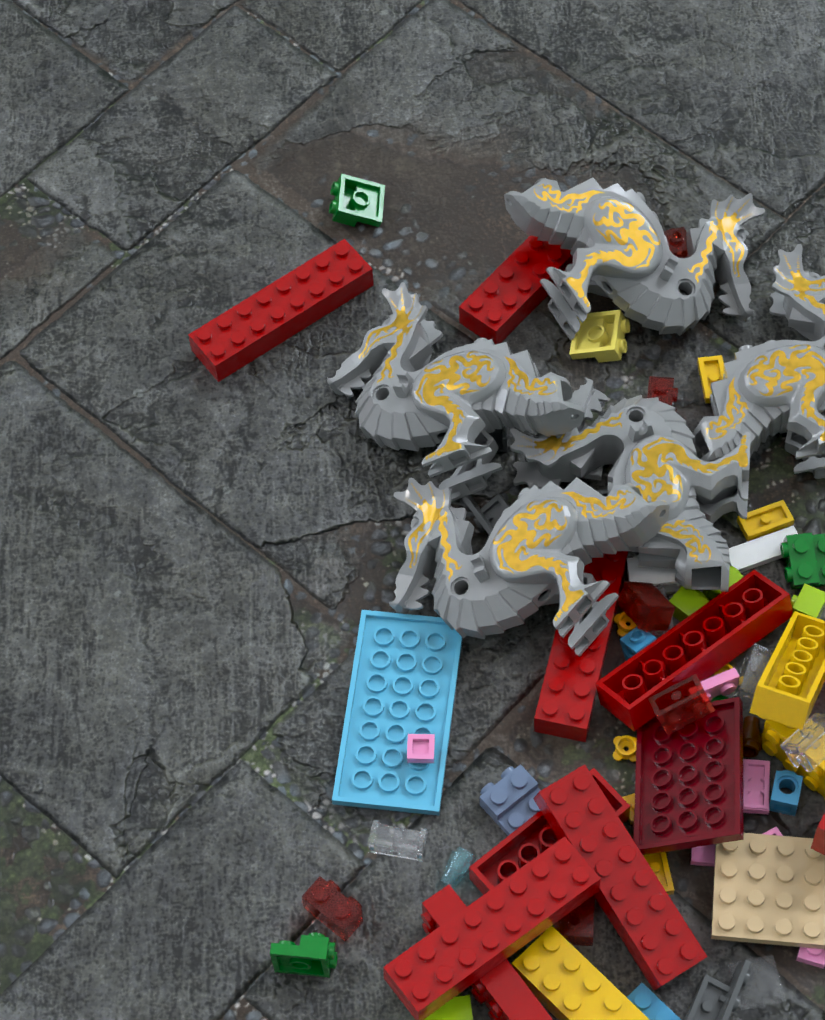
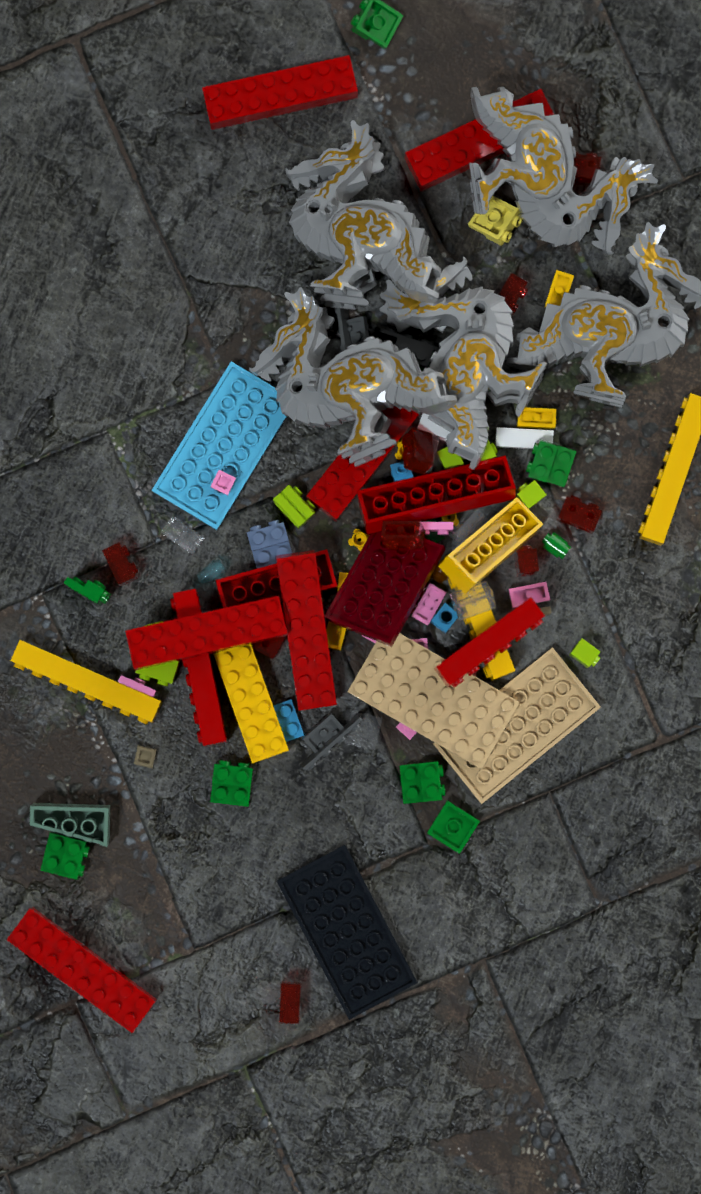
camera: 15 degrees right, 25 degrees up
(524, 742) = (294, 506): none -> lime brick

